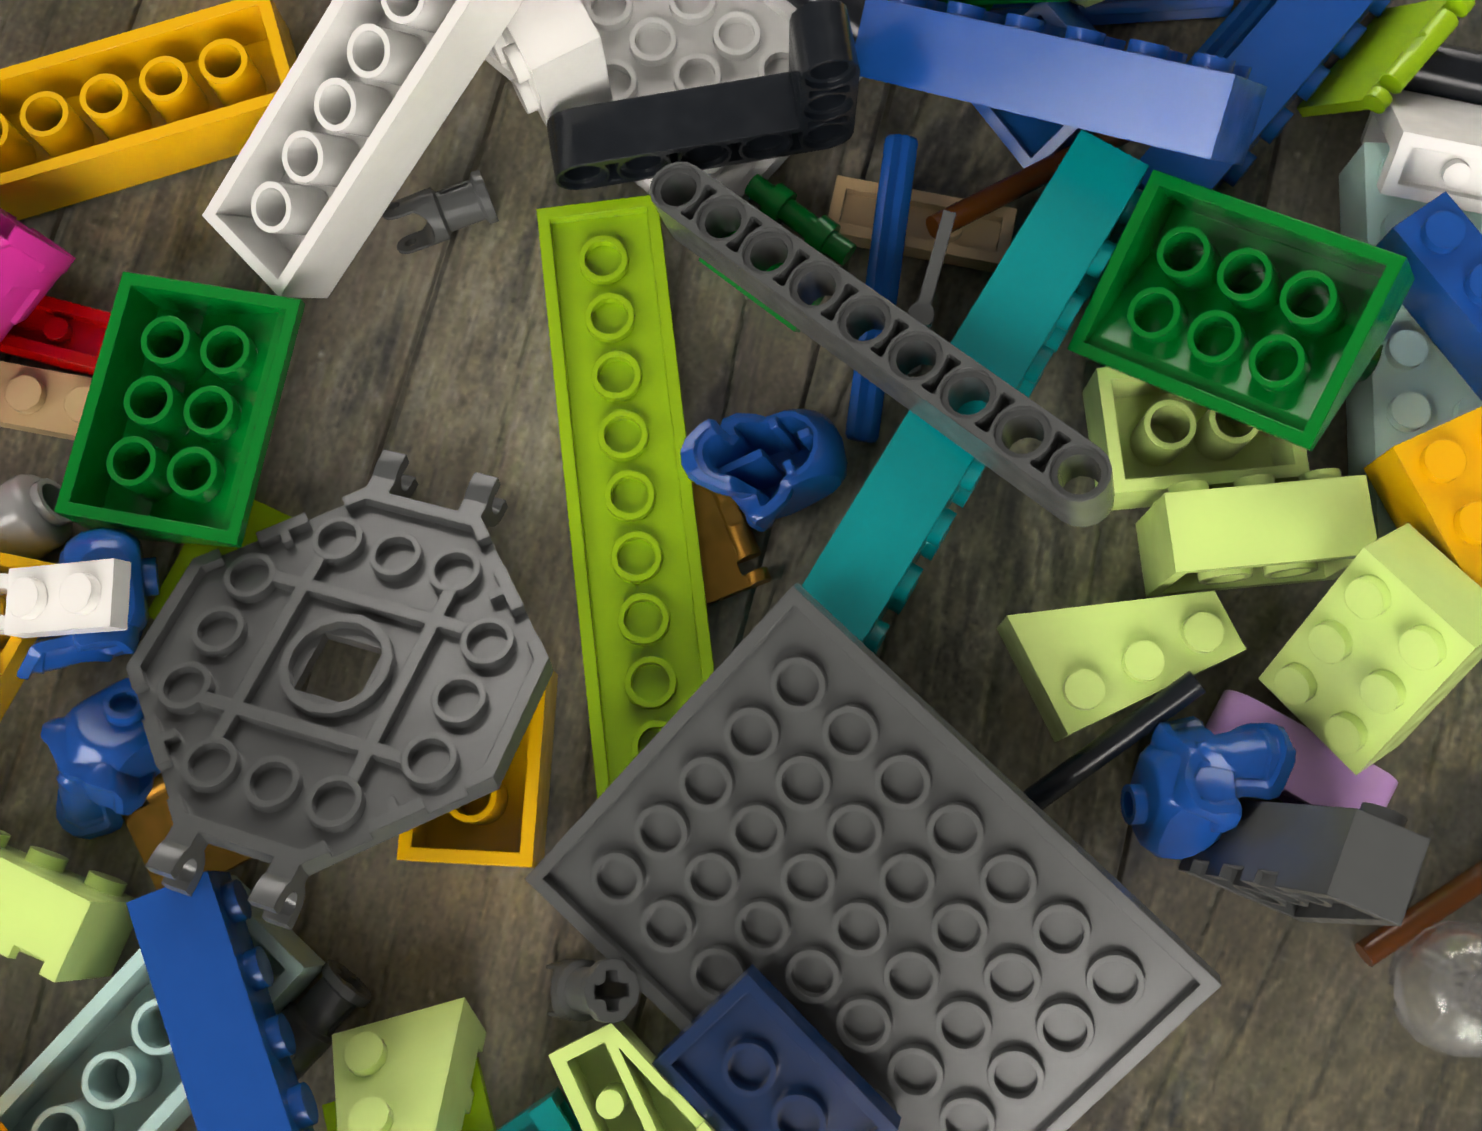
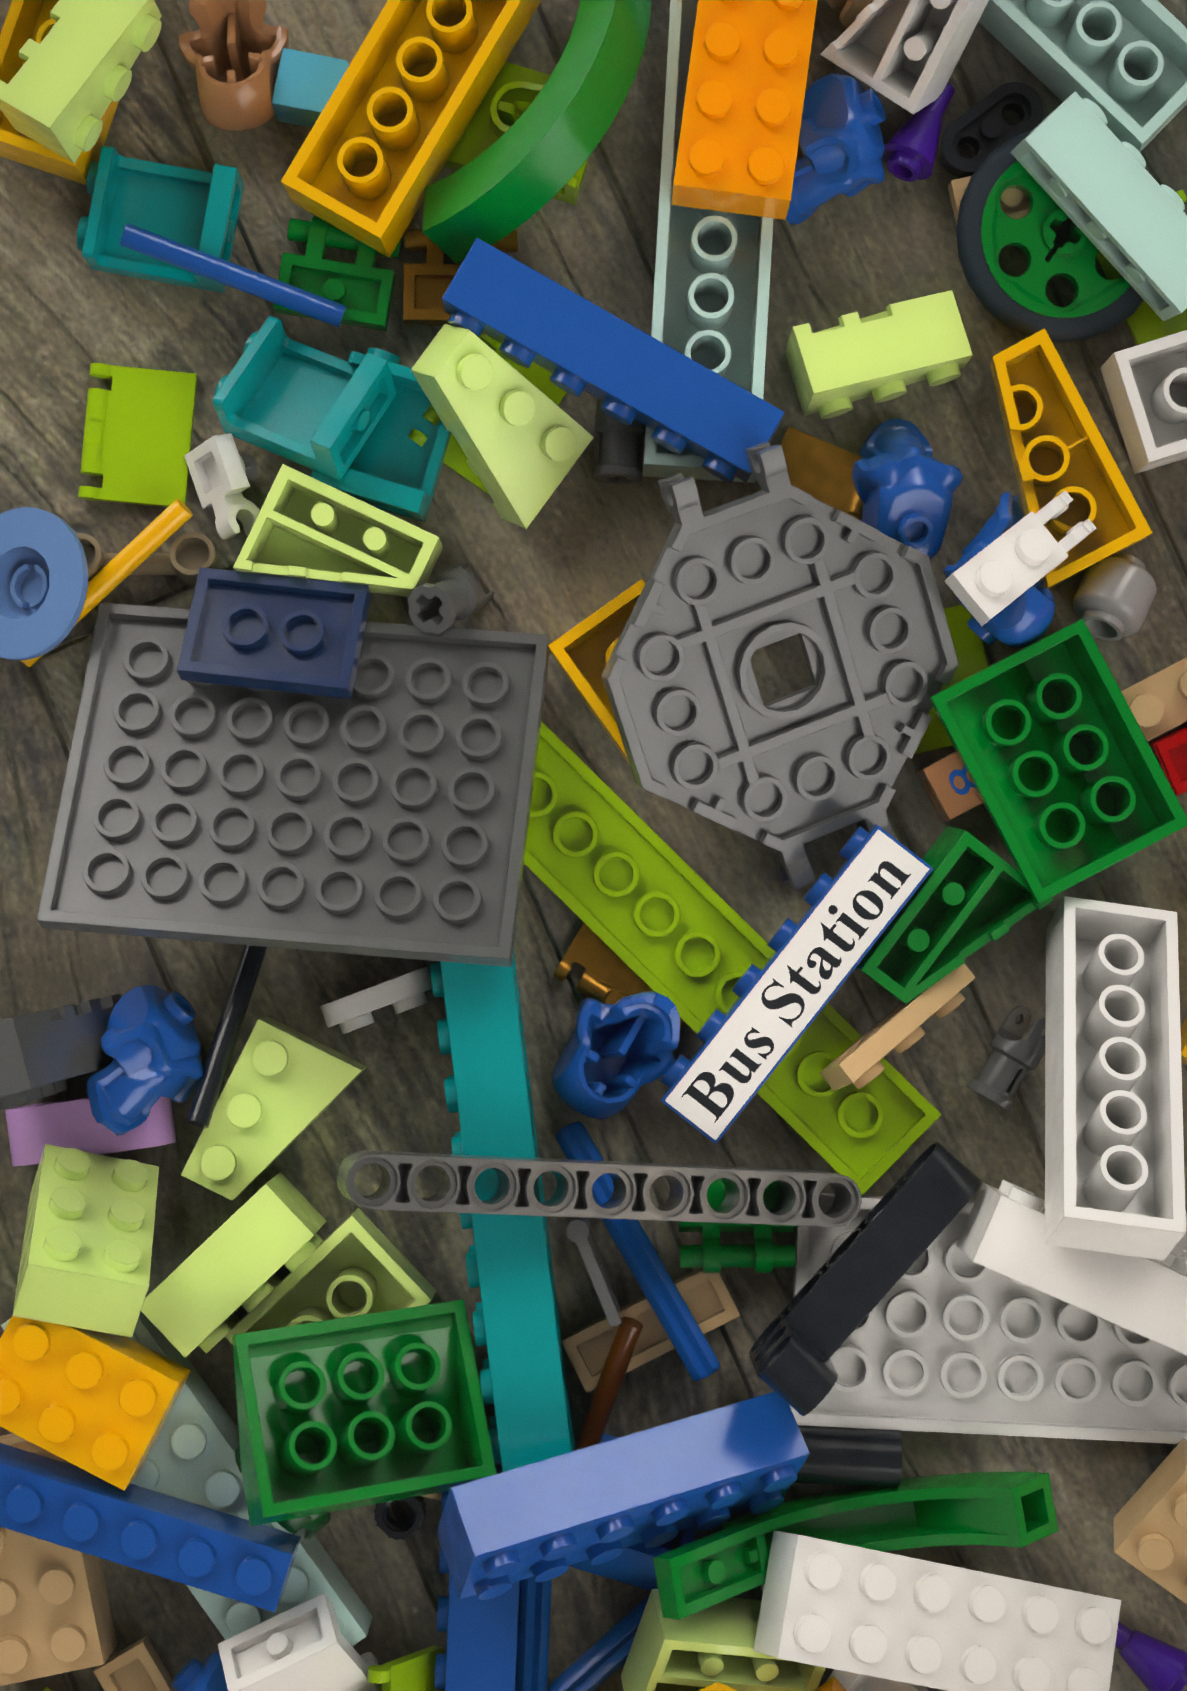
camera: 140 degrees right, 10 degrees up
(295, 470) = (949, 787): none -> medium nougat brick
(396, 366) = (951, 915): none -> green wedge
(509, 299) = (896, 1030): none -> tan plate
(559, 398) = (795, 982): none -> white brick
(968, 682) = (355, 1009): none -> white plate

